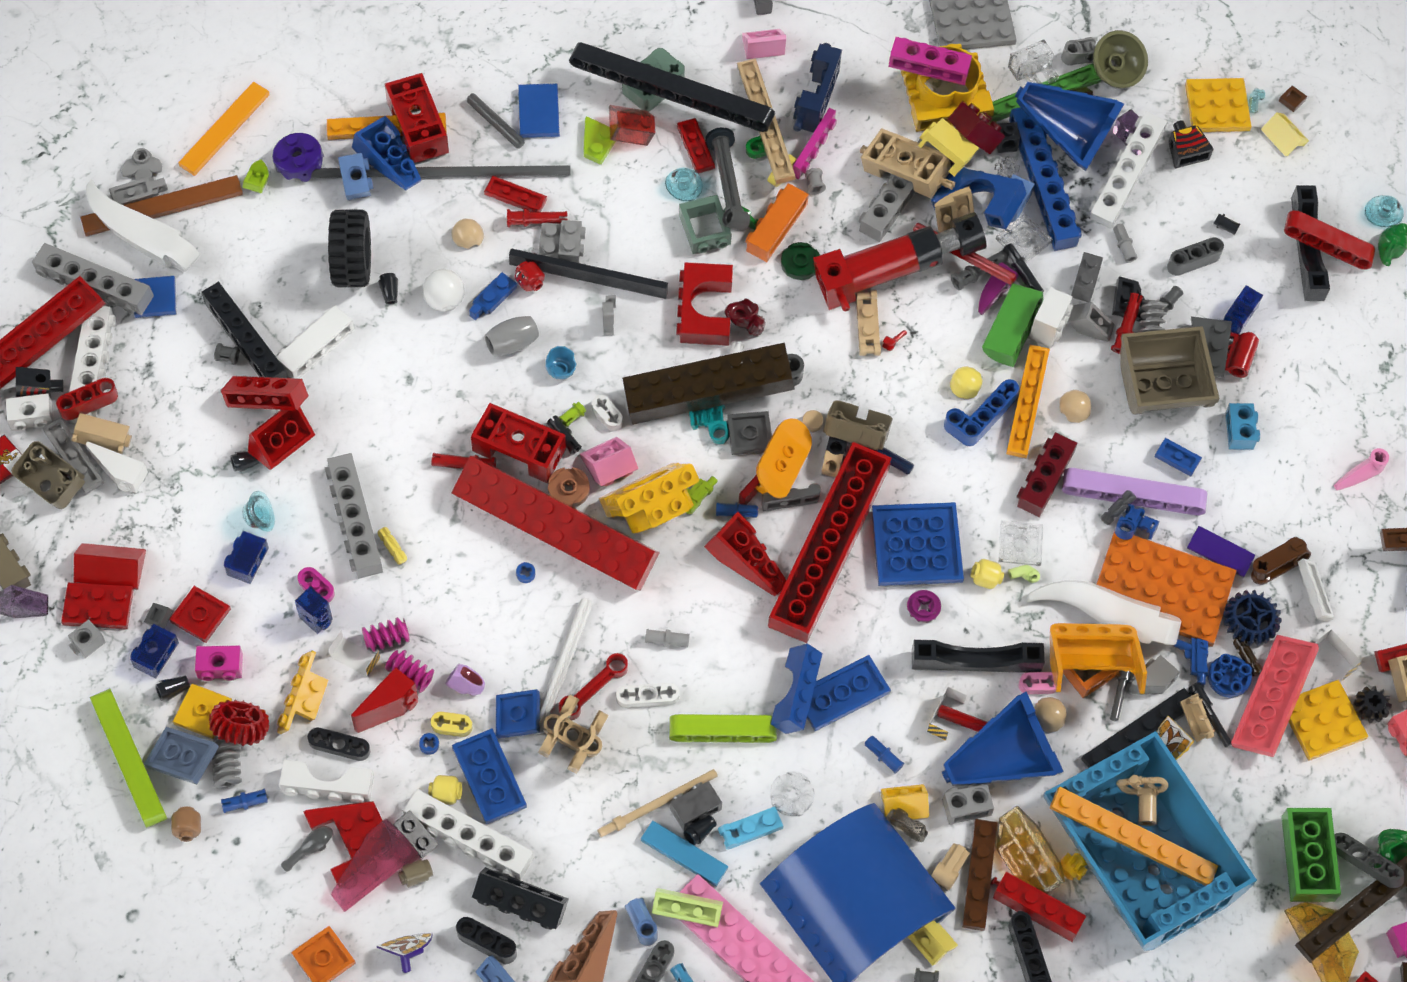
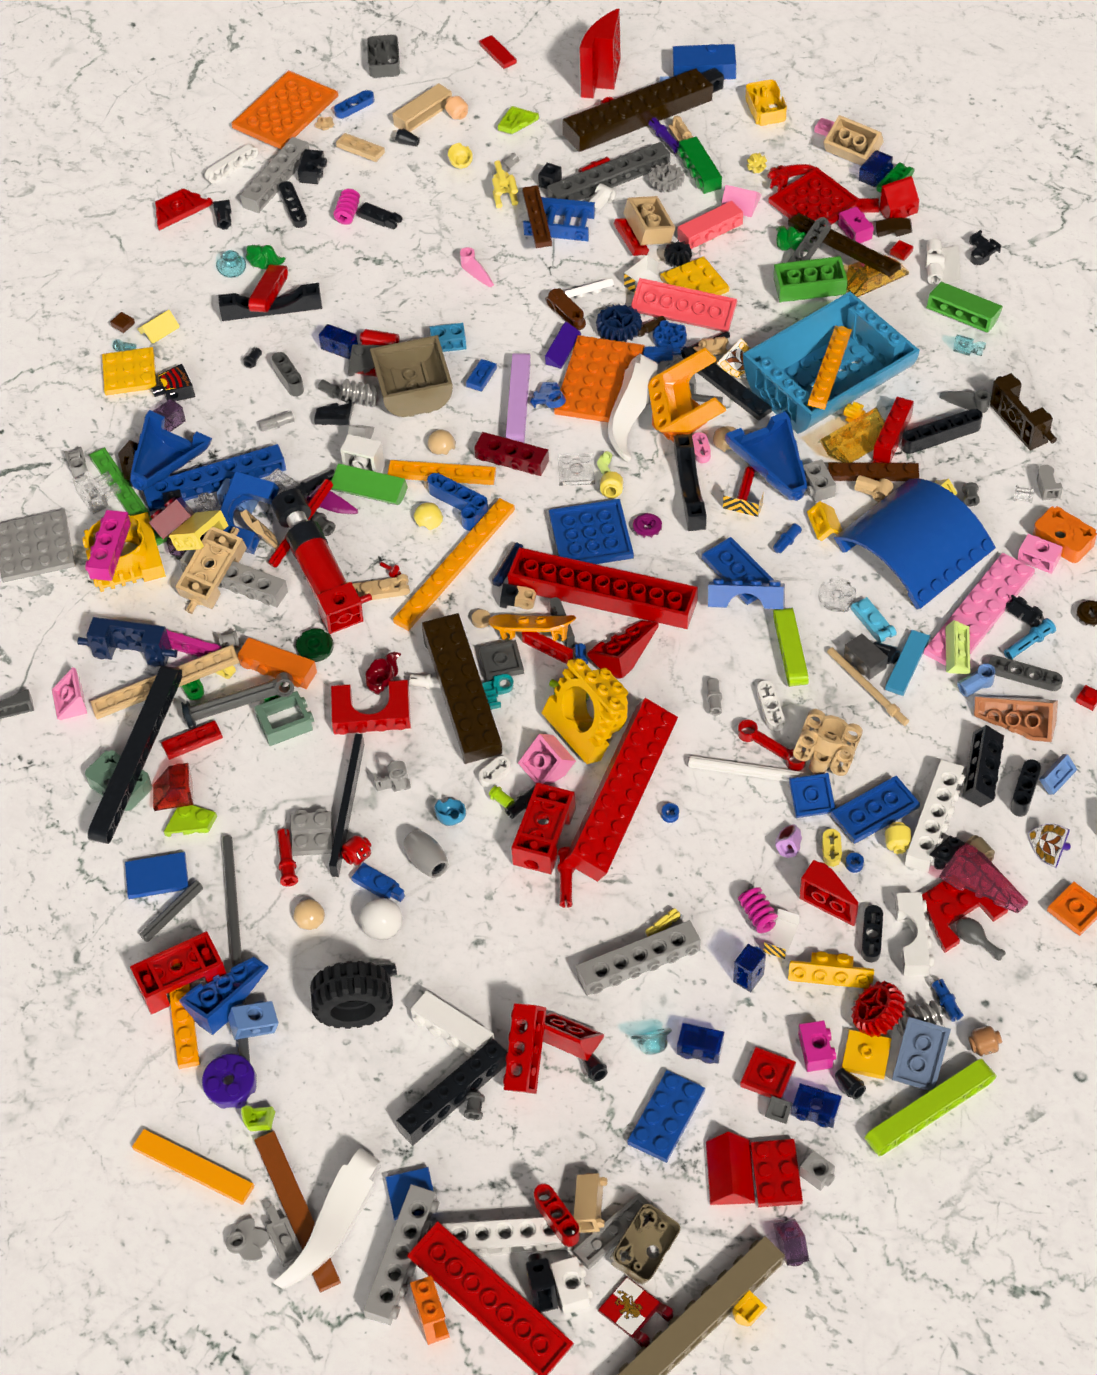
camera: 90 degrees left, 10 degrees down
(27, 290) = (429, 1309): none -> orange panel
(123, 470) = (623, 1181): white slope -> none
(180, 518) = (666, 1116): none -> blue plate
(318, 583) = (716, 980): dark pink plate -> none
(410, 669) = (789, 882): dark pink piece -> none
(515, 195) = (259, 881): red tile -> none
(567, 477) = (578, 780): nougat plate -> none
(684, 184) = (236, 744): clear light blue hat -> none
(844, 425) = (491, 573): dark tan axle -> none
(896, 404) = (453, 564): none -> light orange plate
(913, 829) = (848, 512): clear smoke plate -> none
(1087, 277) = (316, 440): flat silver brick -> none
(1118, 507) = (536, 405): dark grey axle -> none
(1128, 320) = (369, 412): red pin -> none
(1129, 59) = (90, 430): olive hat -> none
(1146, 795) = (793, 368): tan piece -> none
(1155, 128) = (209, 413): white brick -> none

